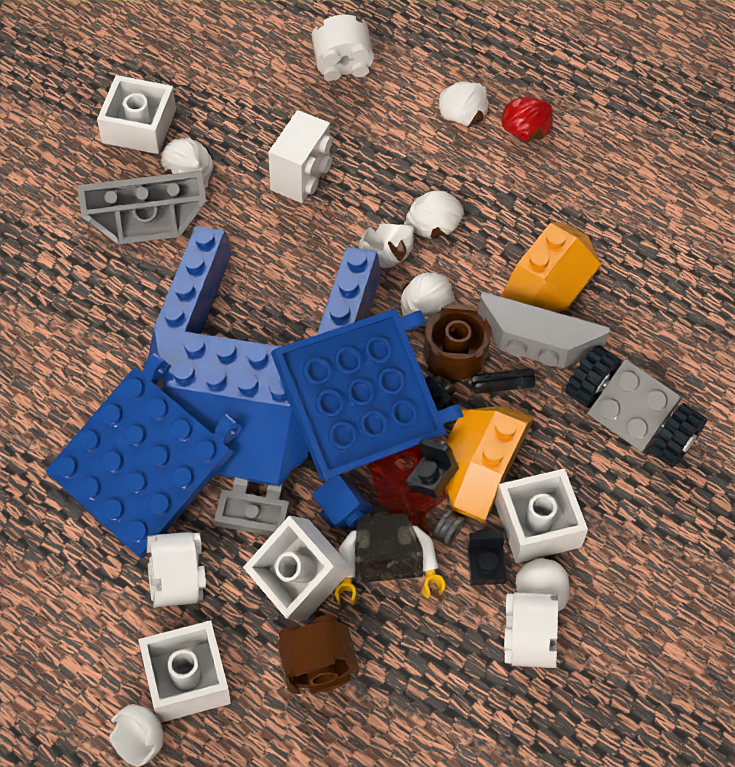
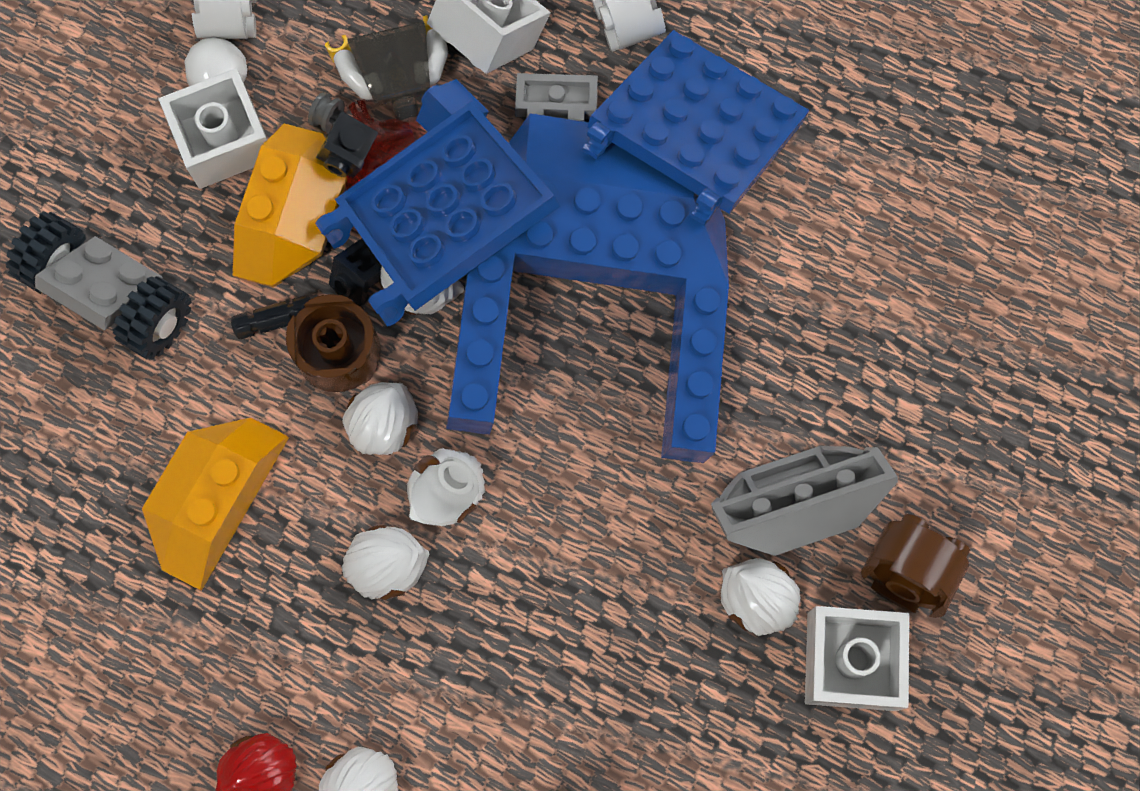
camera: 175 degrees right, 15 degrees up
(81, 151) = (916, 566): none -> reddish brown brick
(300, 156) = (591, 608): white brick -> none
(486, 557) = (281, 88): black bracket -> none
(539, 333) = (217, 344): light grey wedge -> none

